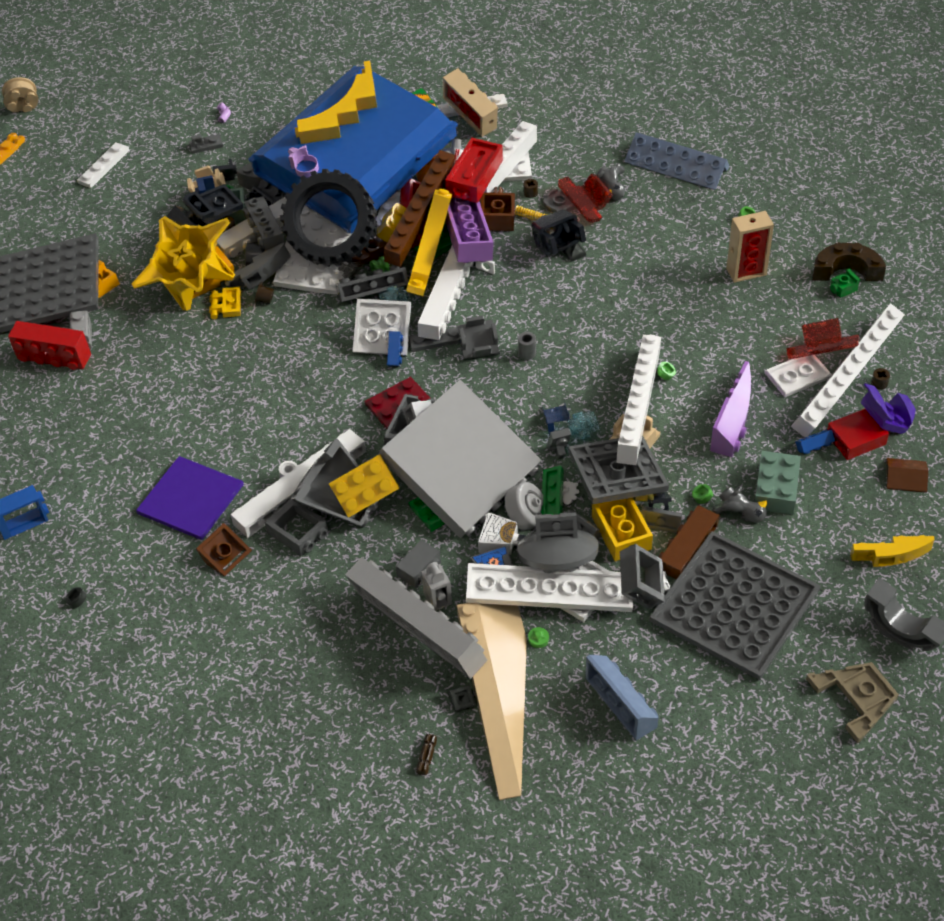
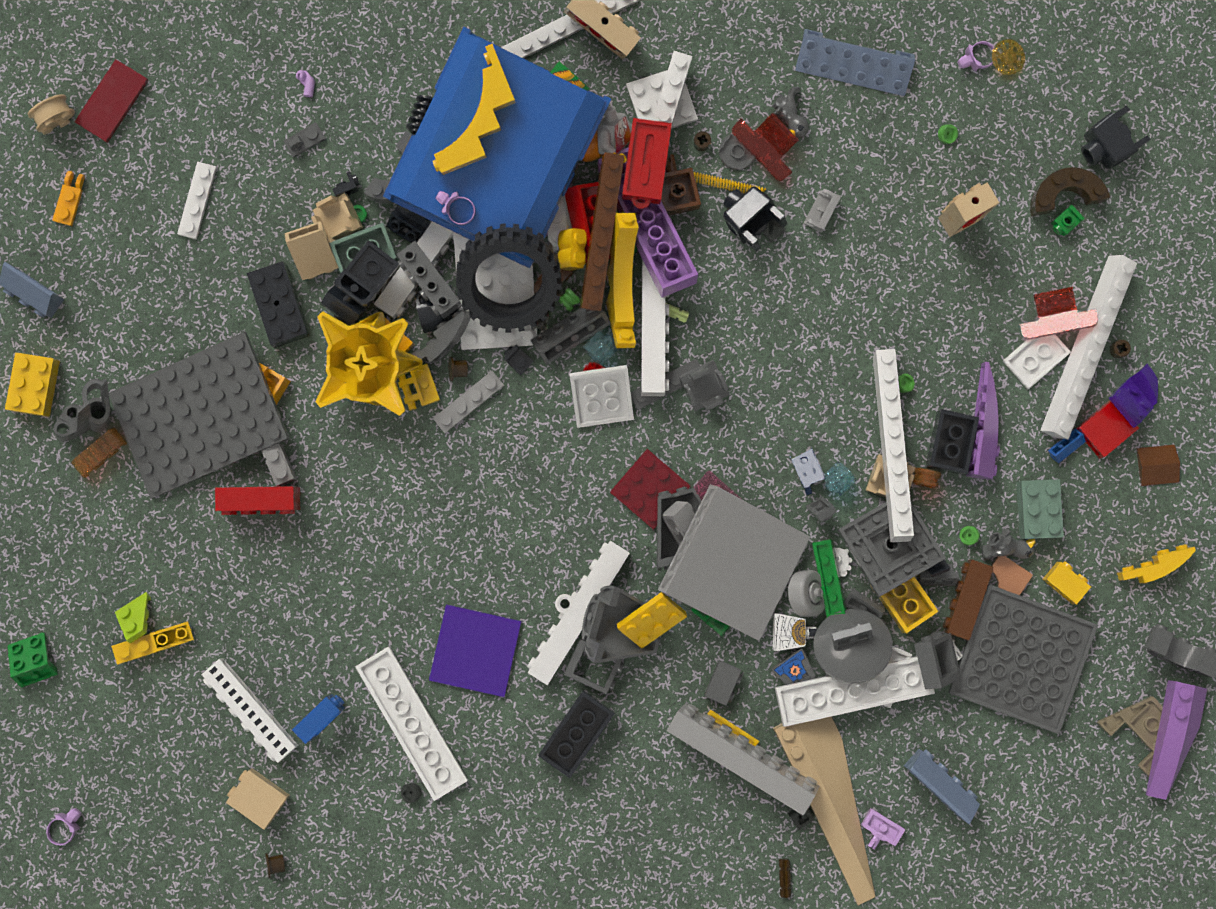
camera: 20 degrees left, 35 degrees up
(69, 101) = (111, 101): none -> dark red tile
(104, 543) = (411, 723): none -> white plate
(134, 230) = (282, 322): none -> black piece
(172, 192) = (311, 250): none -> tan brick
(204, 184) = (340, 246): dark blue bracket -> none
(221, 549) = (529, 708): reddish brown slope -> none
(257, 574) = (576, 734): none -> black brick
(264, 320) = (468, 402): none -> light grey plate
(318, 297) = (517, 359): none -> black bracket
(395, 348) = (622, 420): blue piece -> none
(436, 586) = (749, 712): light grey brick -> none
(470, 291) = (674, 312): none -> yellowish green axle
(527, 345) = (758, 386): flat silver brick -> none
(538, 637) = (852, 734): bright green tile -> none
(545, 727) = (882, 829): none -> lavender plate
(623, 246) = (822, 210): none -> light grey hinge
(668, 438) = (926, 478): none -> clear orange wheel
(698, 415) = (952, 442): none -> black brick
(738, 532) = (1010, 575): none -> nougat tile
(779, 173) = (969, 59): none -> lavender piece
(794, 547) = (1066, 582): none -> yellow brick
(811, 177) = (1008, 57): none -> clear yellow wheel
(891, 230) = (1110, 141): none -> black piece
(893, 697) = (1176, 733): none -> medium lavender wedge

